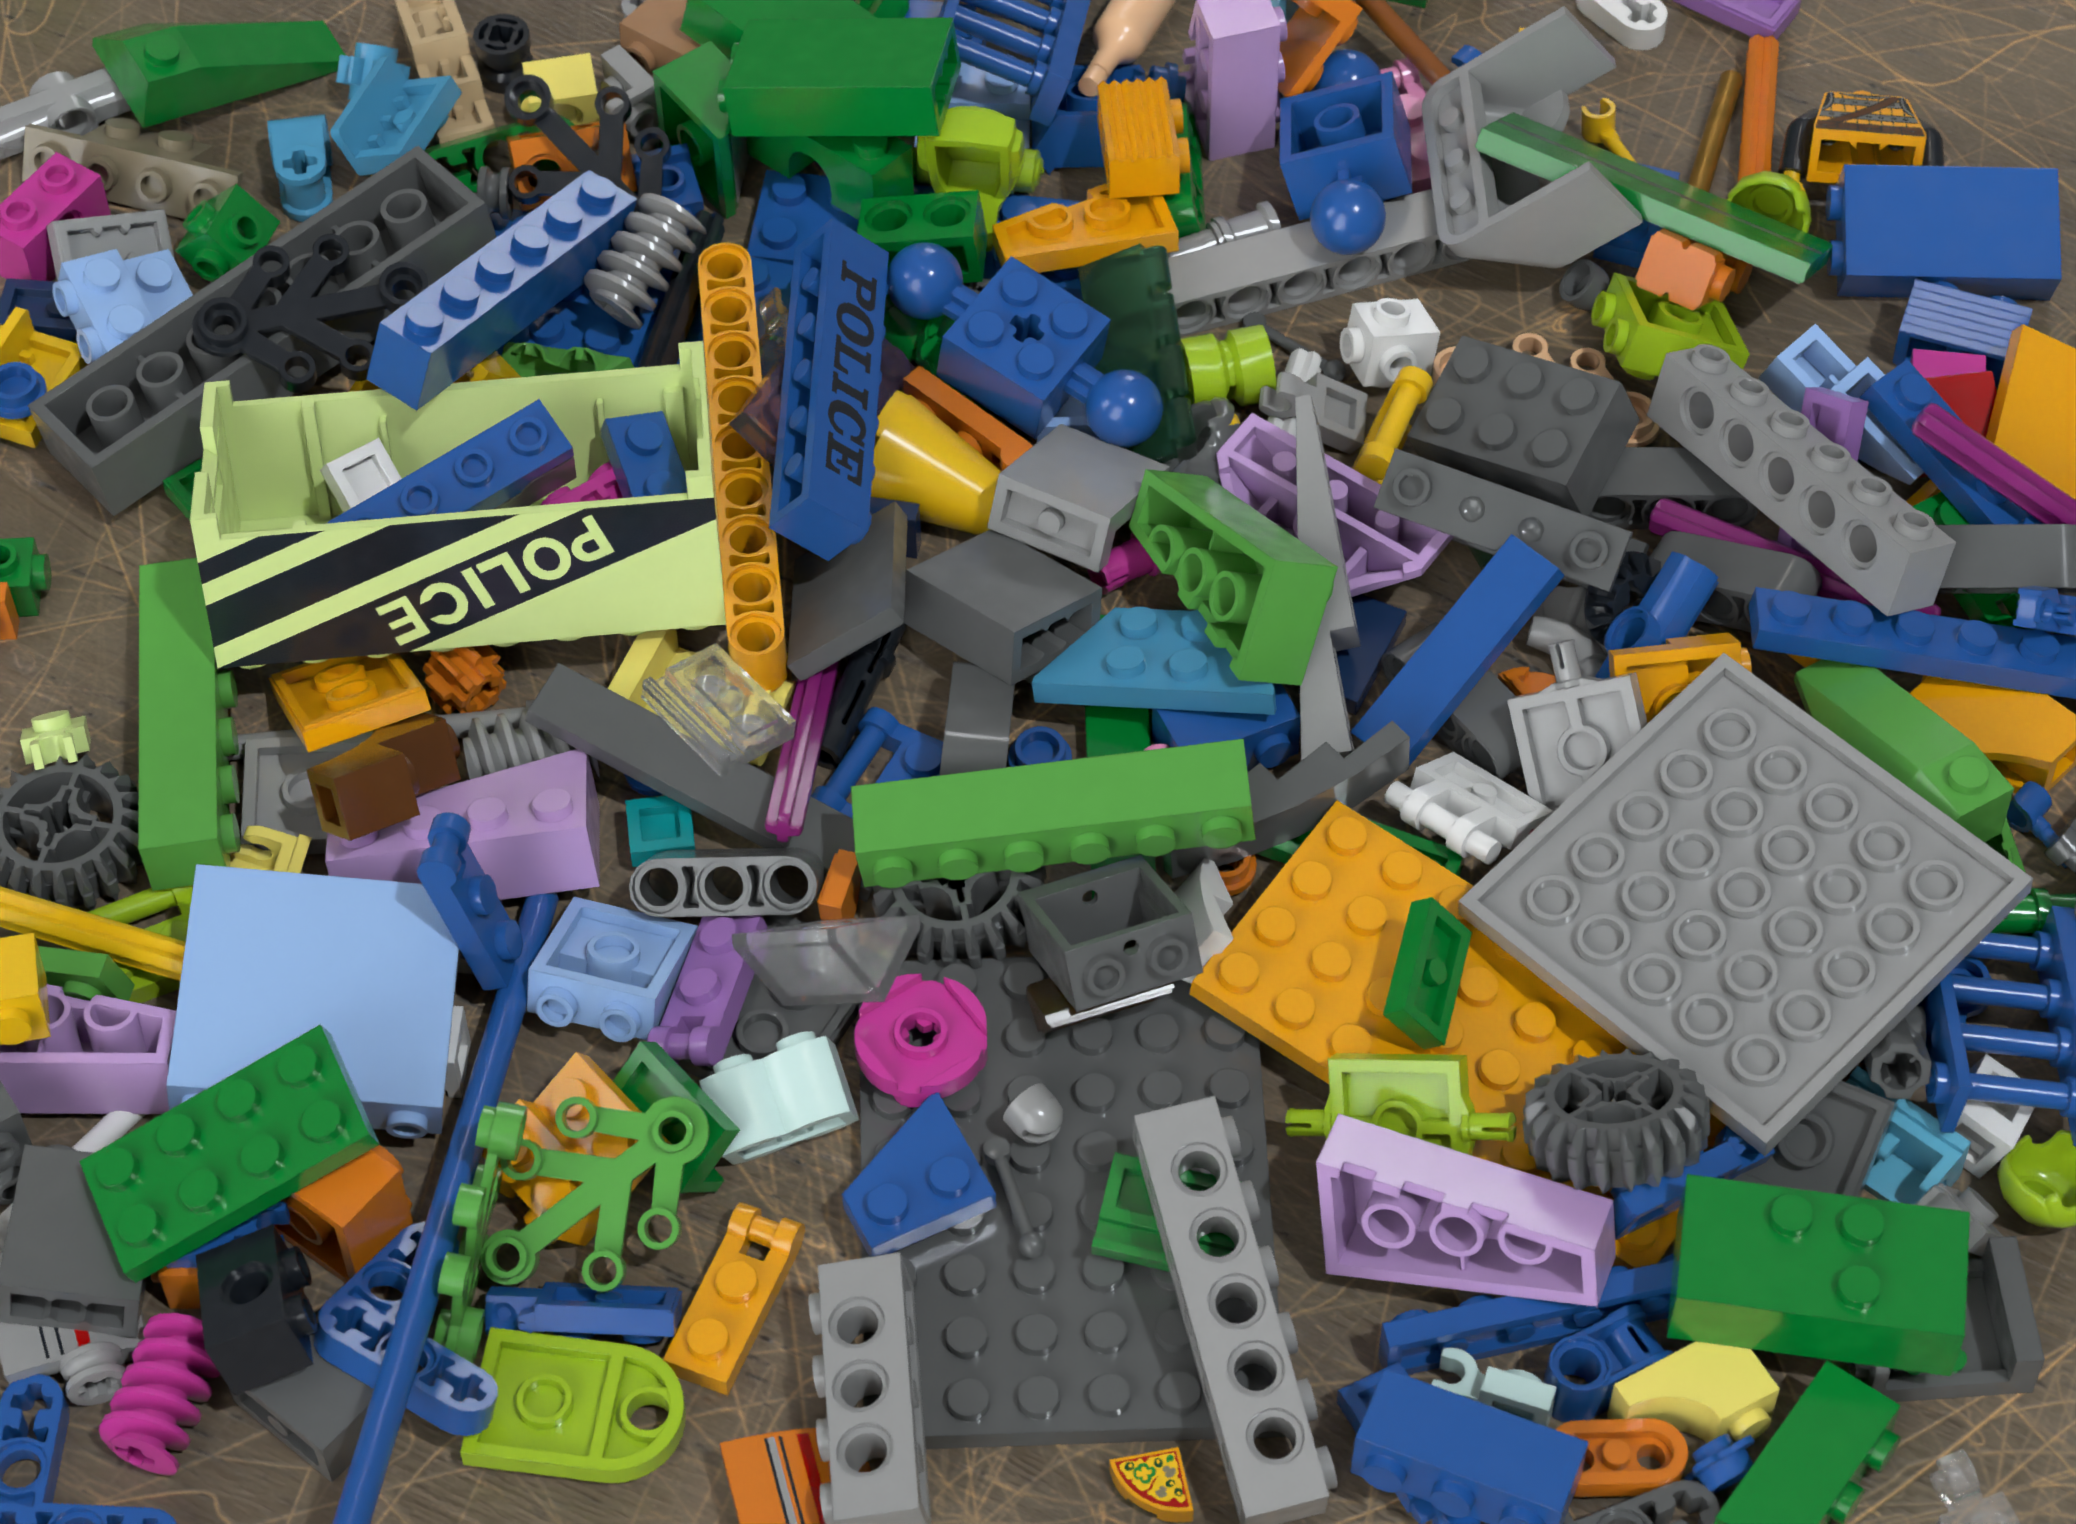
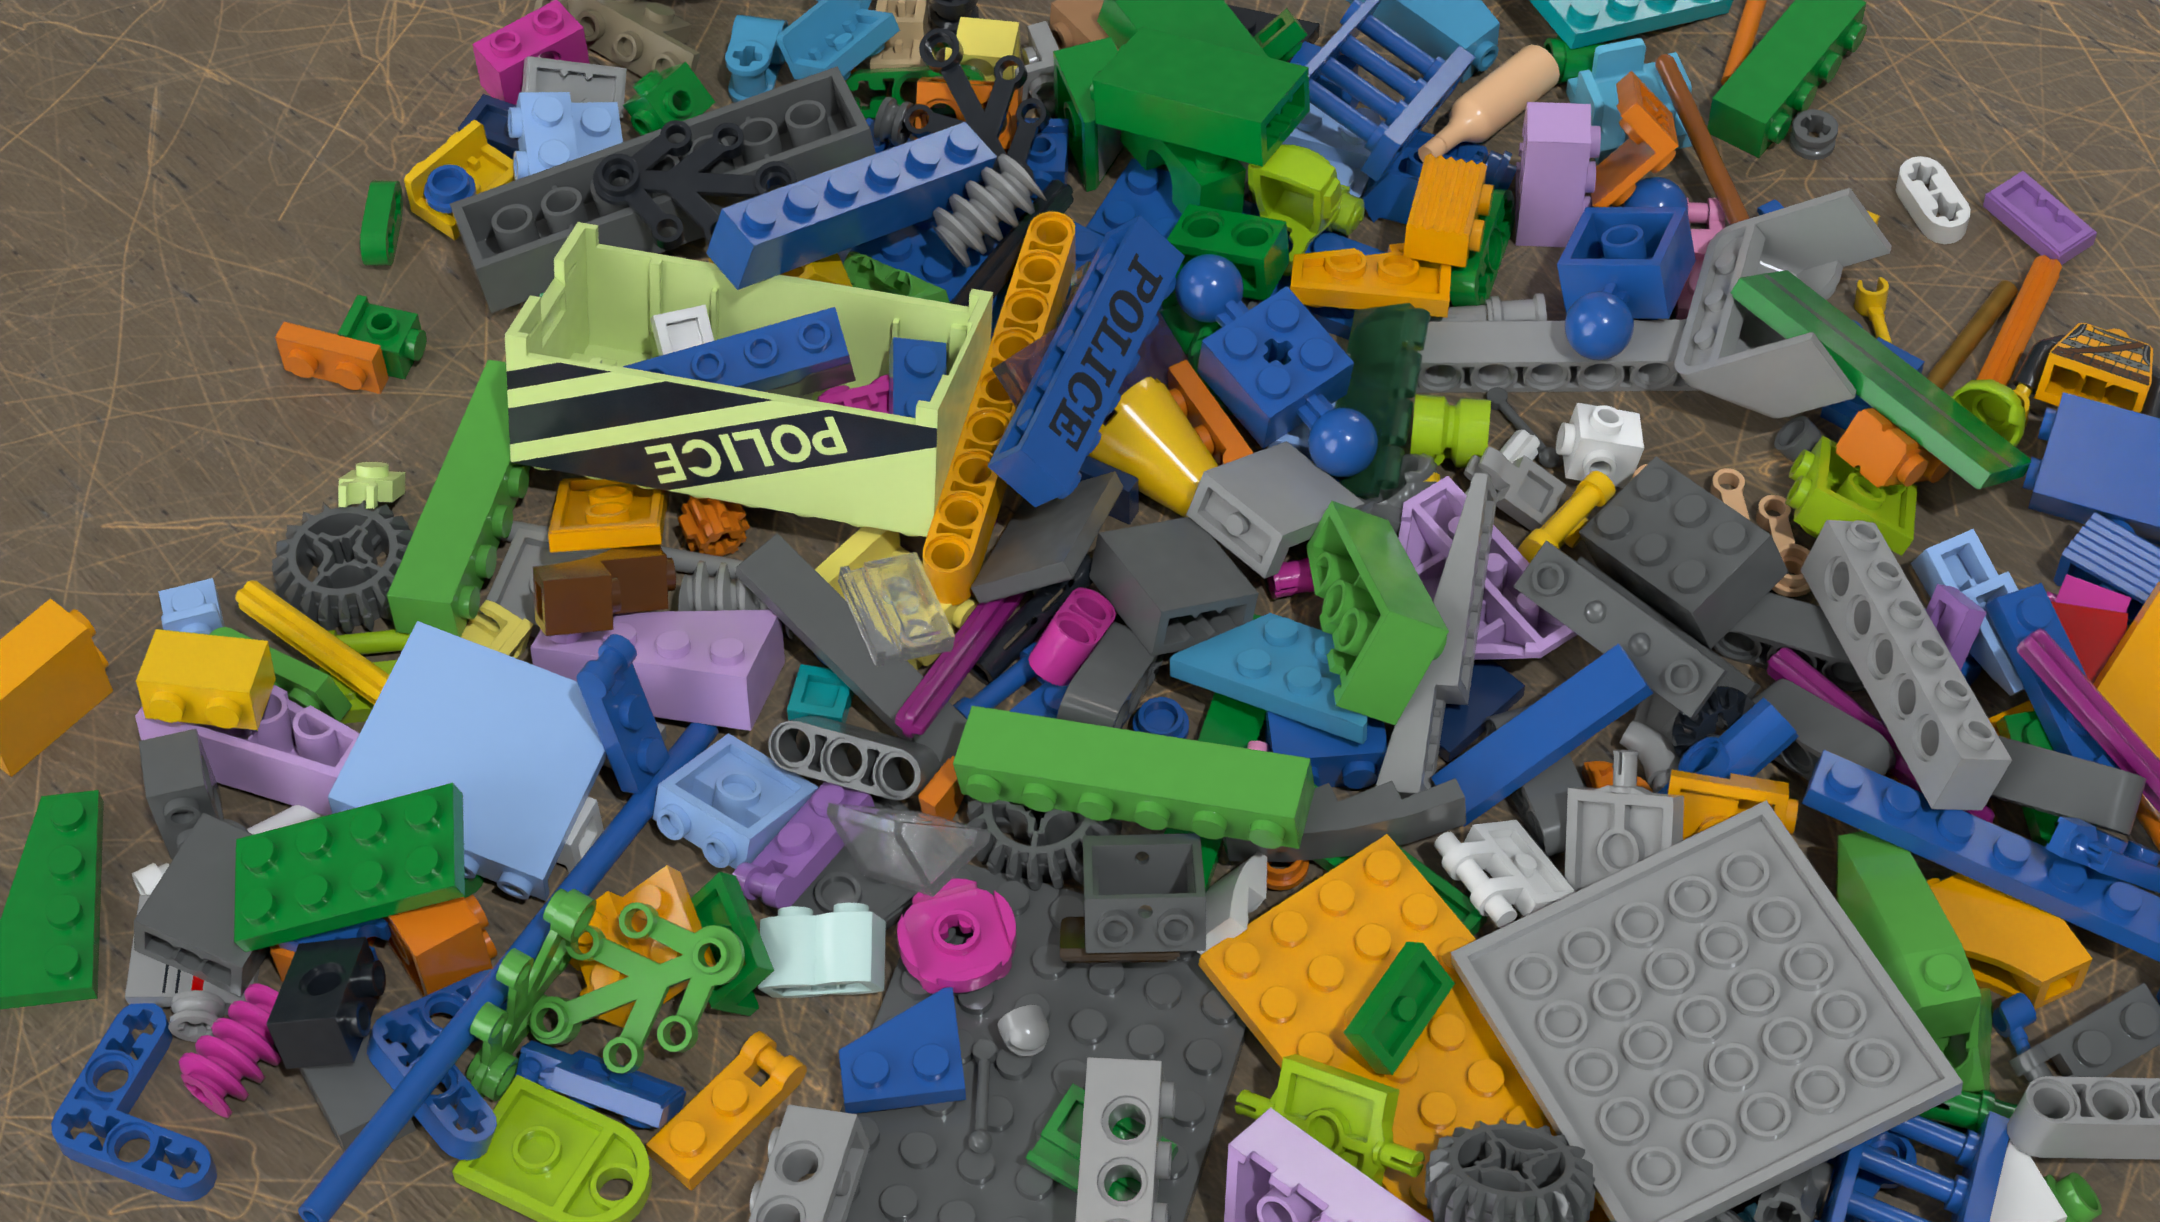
camera: 20 degrees right, 0 degrees up
(914, 689) = (1071, 636): none -> dark pink beam

